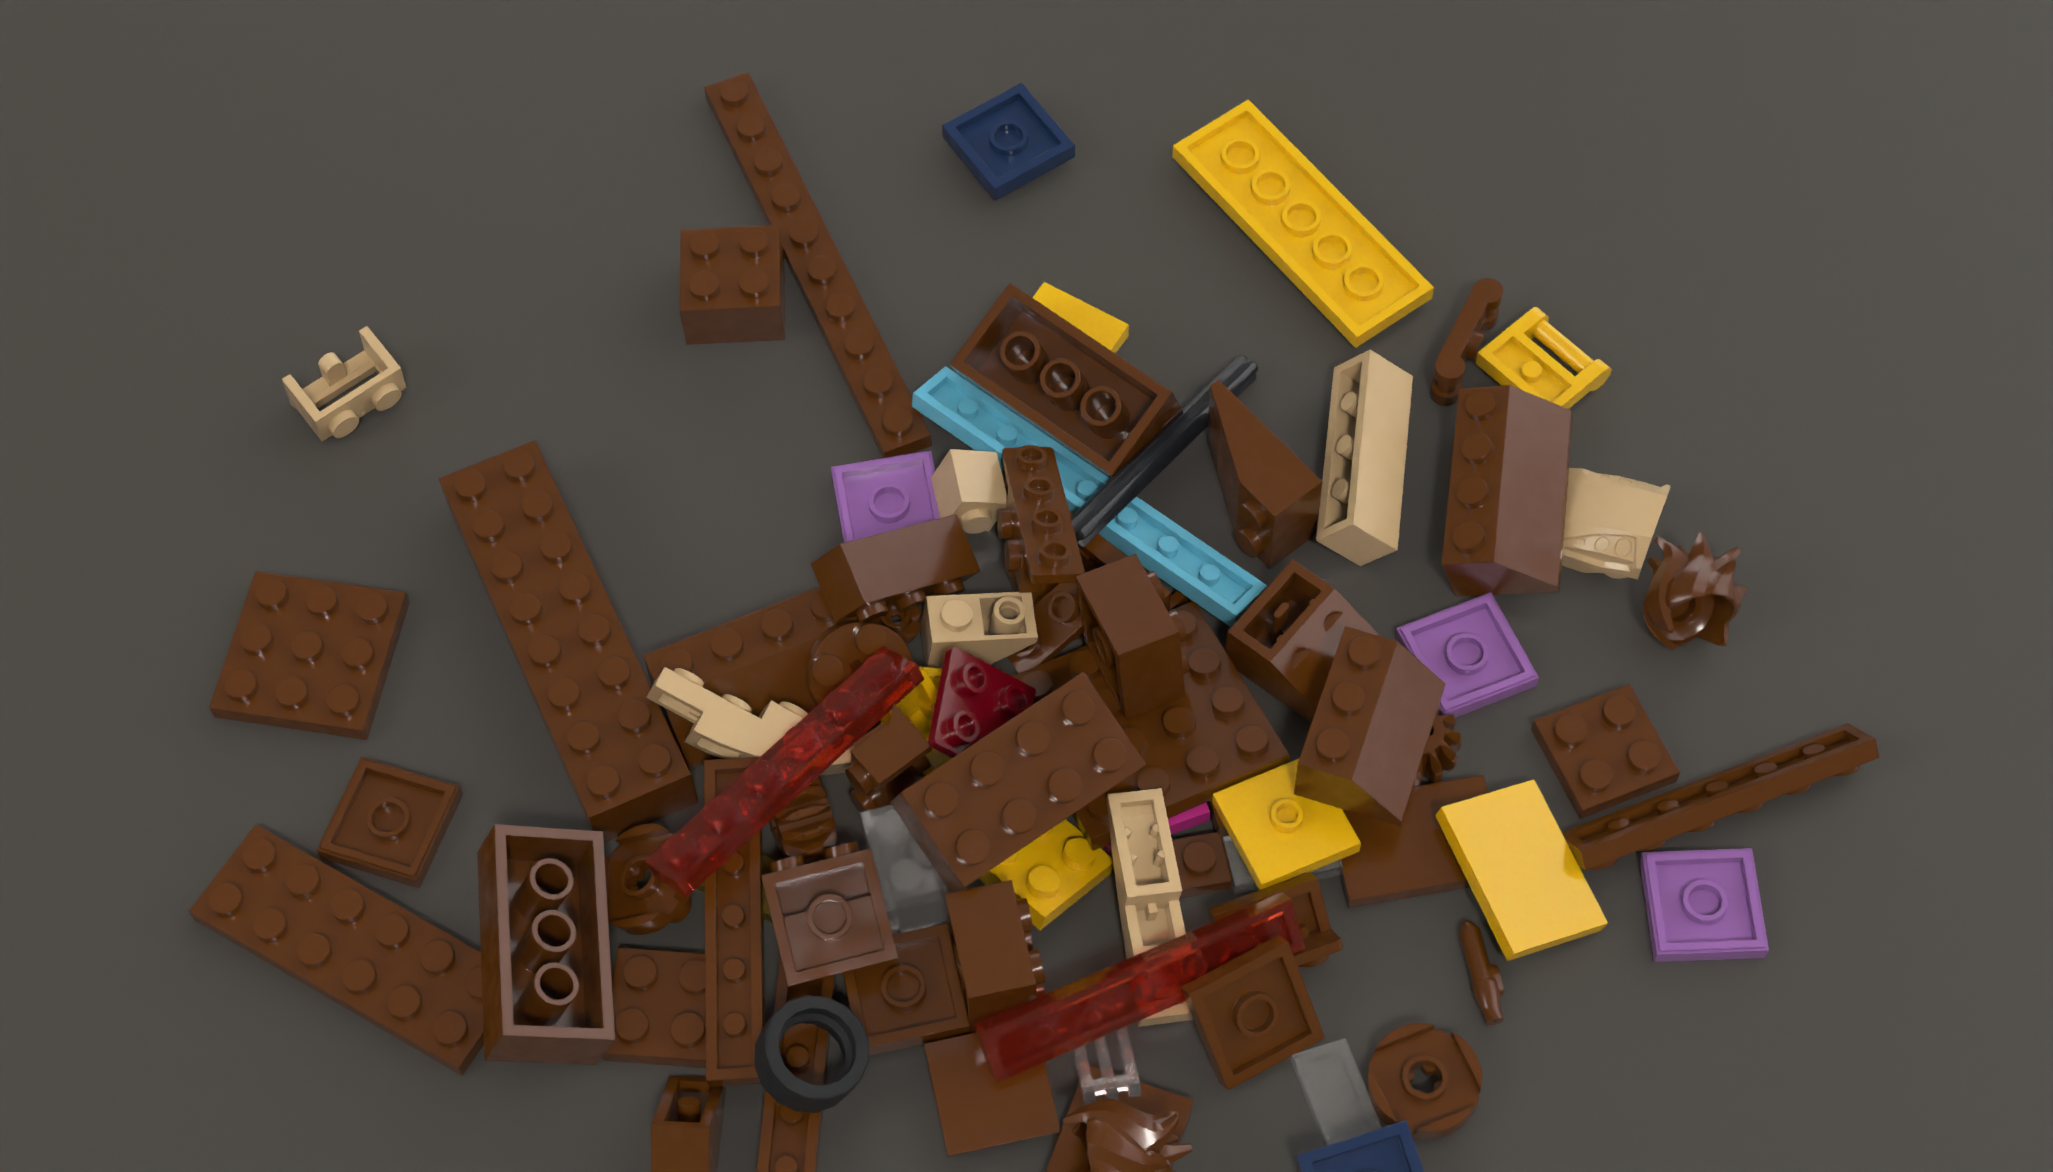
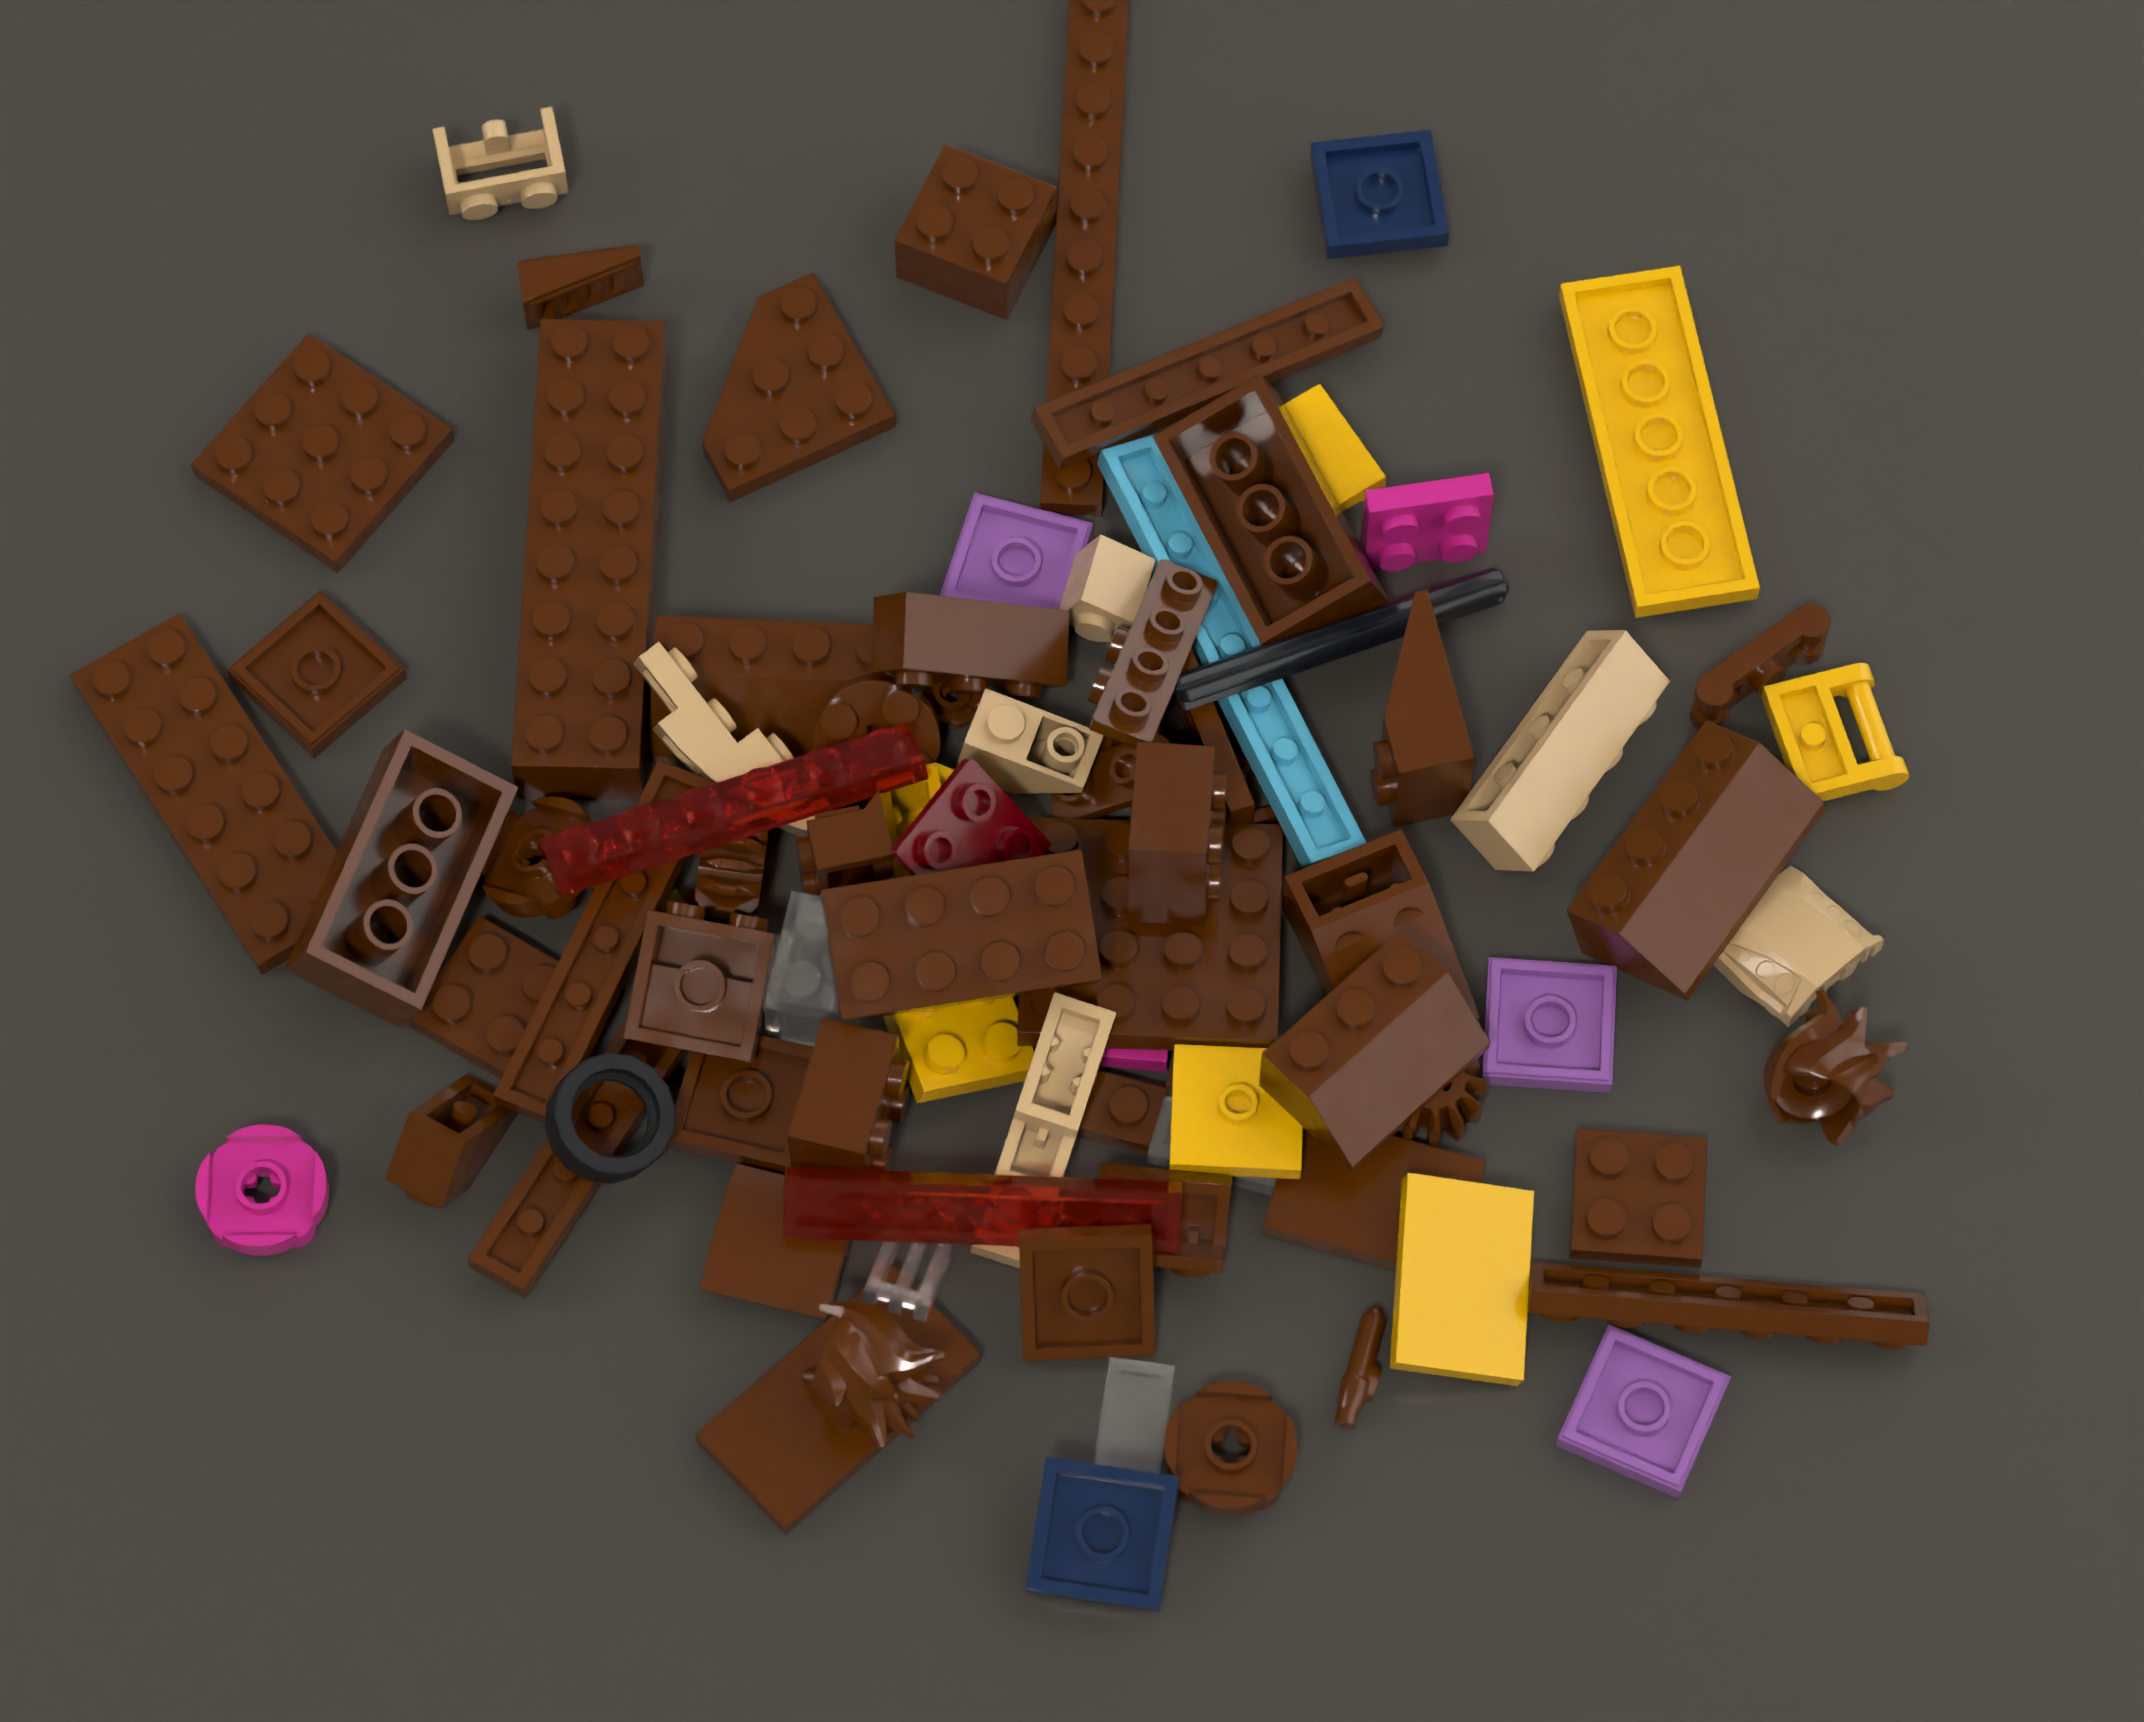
camera: 25 degrees right, 5 degrees up
(447, 445) = (575, 281): none -> reddish brown slope
(654, 457) = (791, 393): none -> reddish brown plate
(955, 310) = (1201, 372): none -> reddish brown plate
(1181, 336) = (1427, 522): none -> dark pink plate

